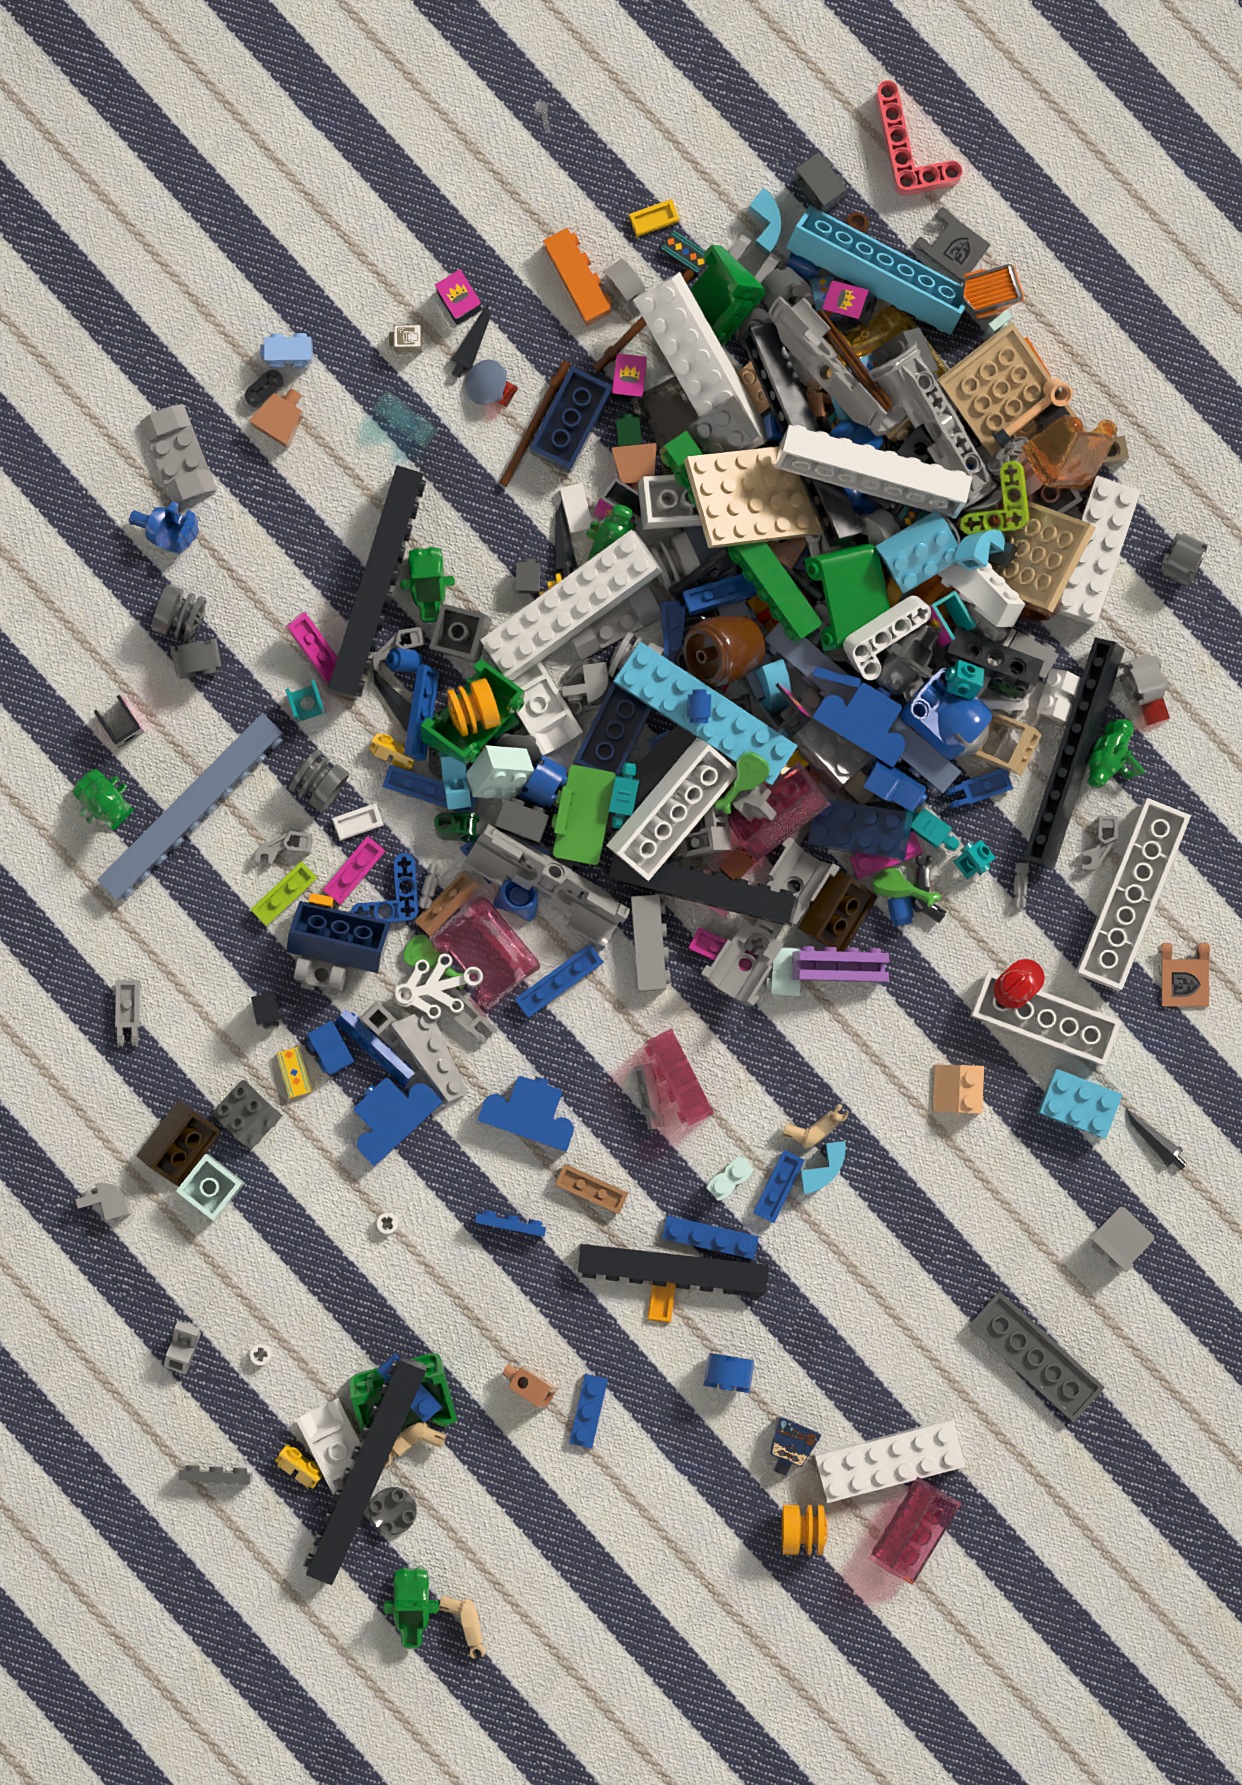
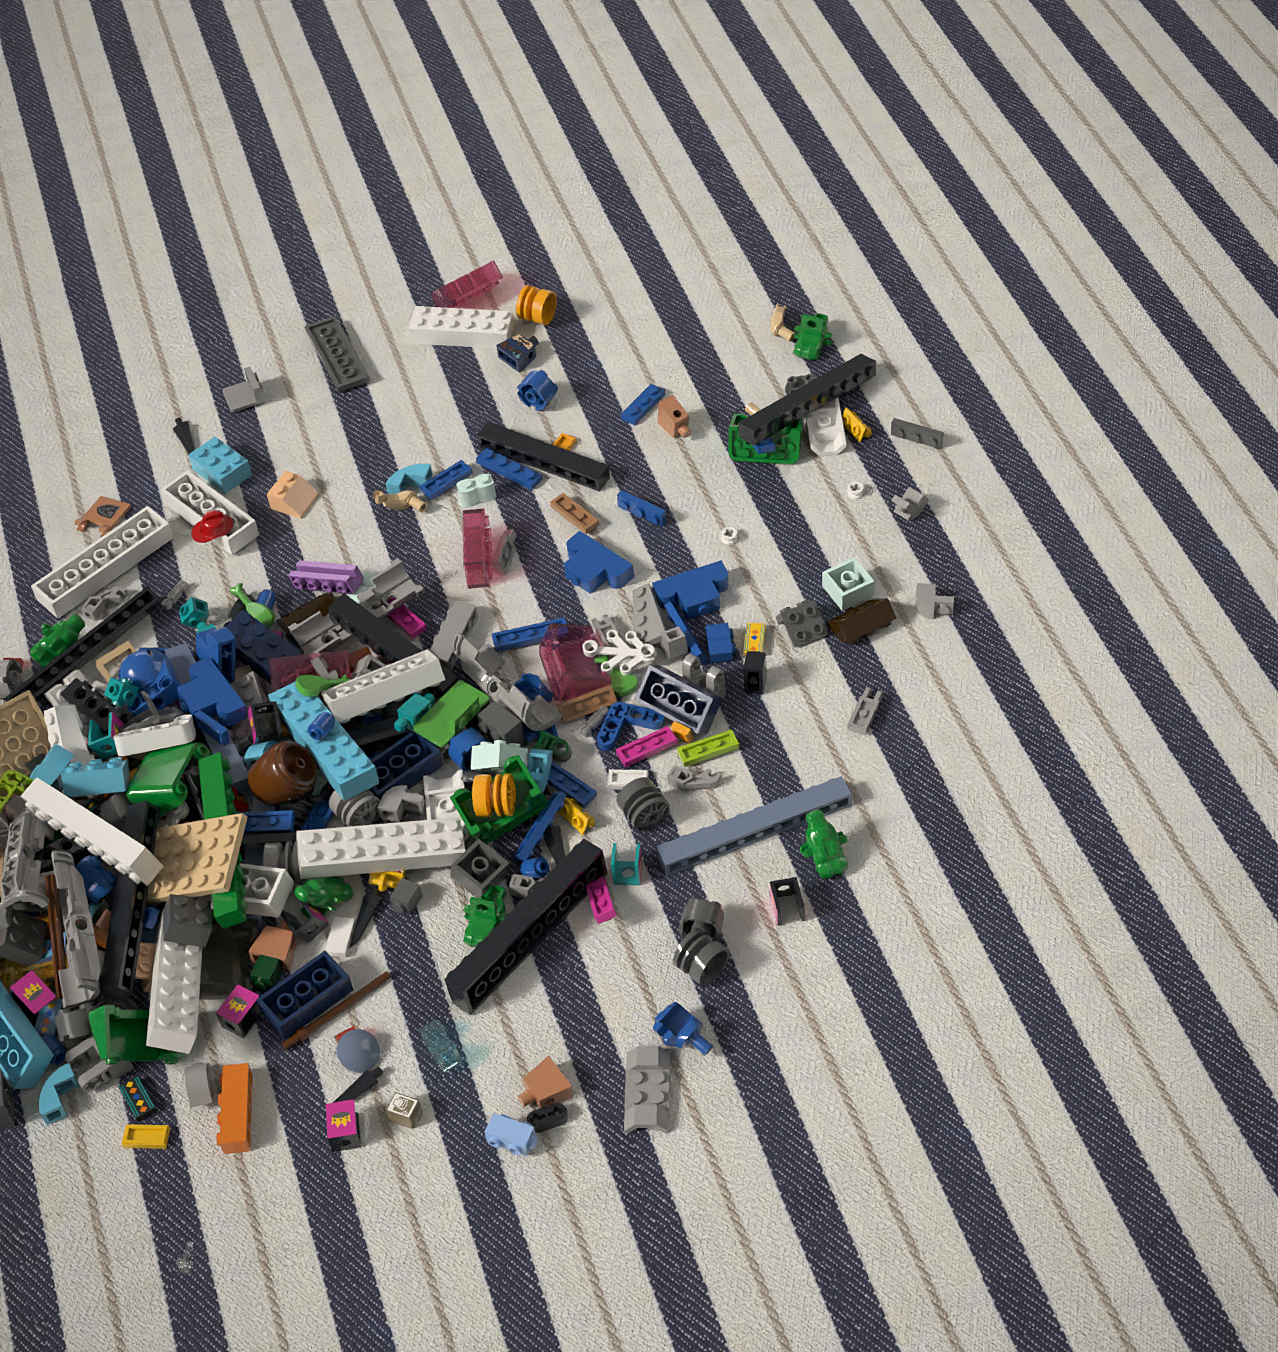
camera: 150 degrees left, 35 degrees down
(610, 353) = (243, 1041): reddish brown bar -> none

